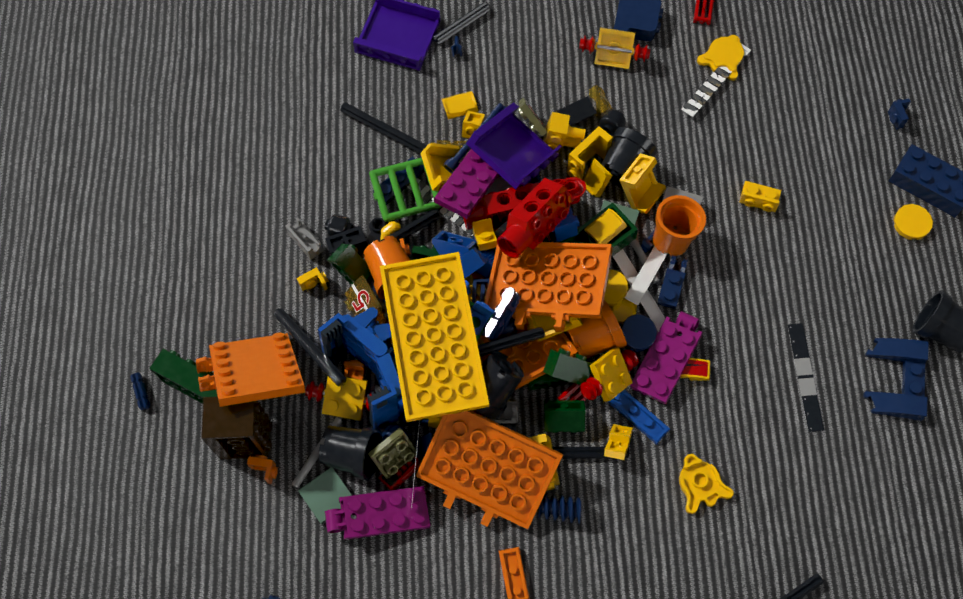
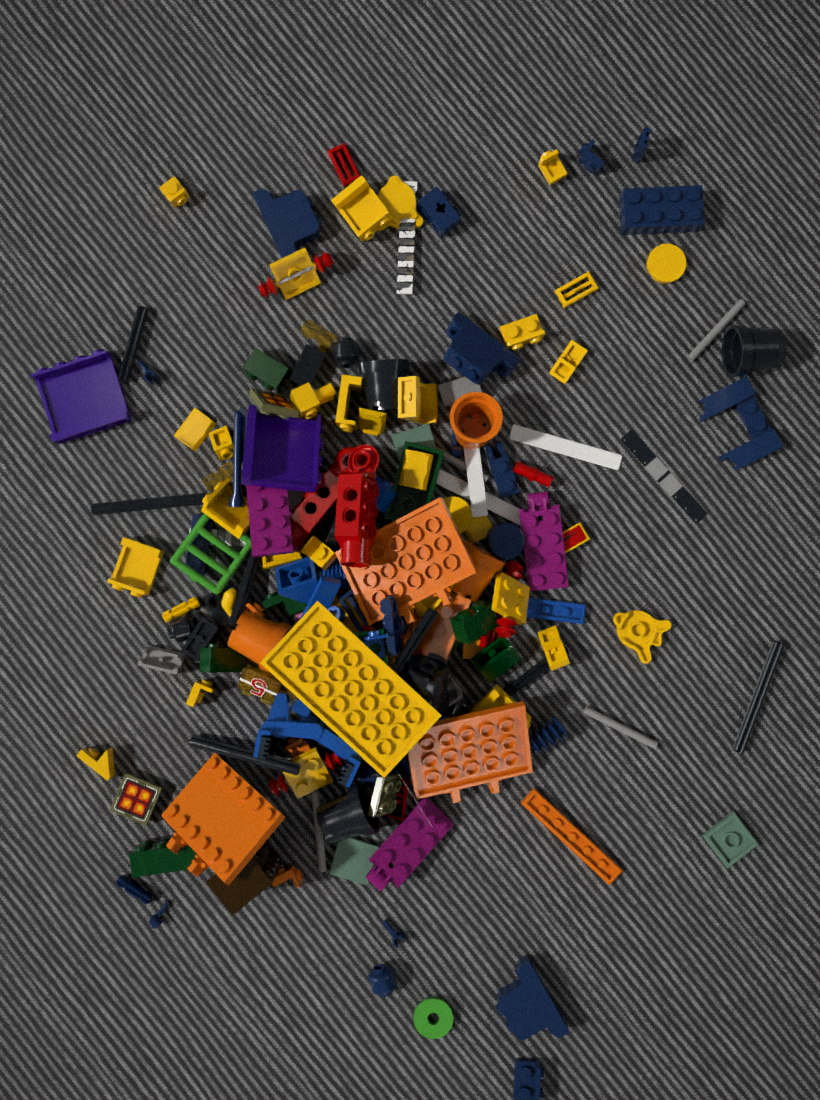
camera: 30 degrees left, 20 degrees up
(134, 425) = (155, 919): none -> dark blue hand
(199, 279) = (102, 765): none -> yellow slope
(201, 324) = (136, 798): none -> tile
(310, 580) = (394, 934): none -> dark blue hand
(341, 164) = (136, 567): none -> yellow panel
(352, 214) = (181, 609): none -> yellow axle
(447, 225) = (278, 560): none -> yellow tile
(543, 97) = (266, 370): none -> dark green brick
(549, 394) = (471, 649): none -> light orange tile
(629, 550) = (620, 727): none -> light grey bar
(696, 39) = (362, 209): none -> yellow panel
(696, 301) = (533, 474): none -> red pin
(714, 184) = (476, 352): none -> dark blue brick
(742, 306) = (565, 447): none -> white sticker
(753, 77) = (440, 221): none -> dark blue brick
(783, 240) = (568, 361): none -> yellow slope
(825, 198) = (561, 298): none -> yellow tile
(863, 99) = (552, 167): none -> yellow bracket
(921, 296) = (716, 330): none -> light grey bar
(946, 125) = (641, 145): none -> dark blue tile

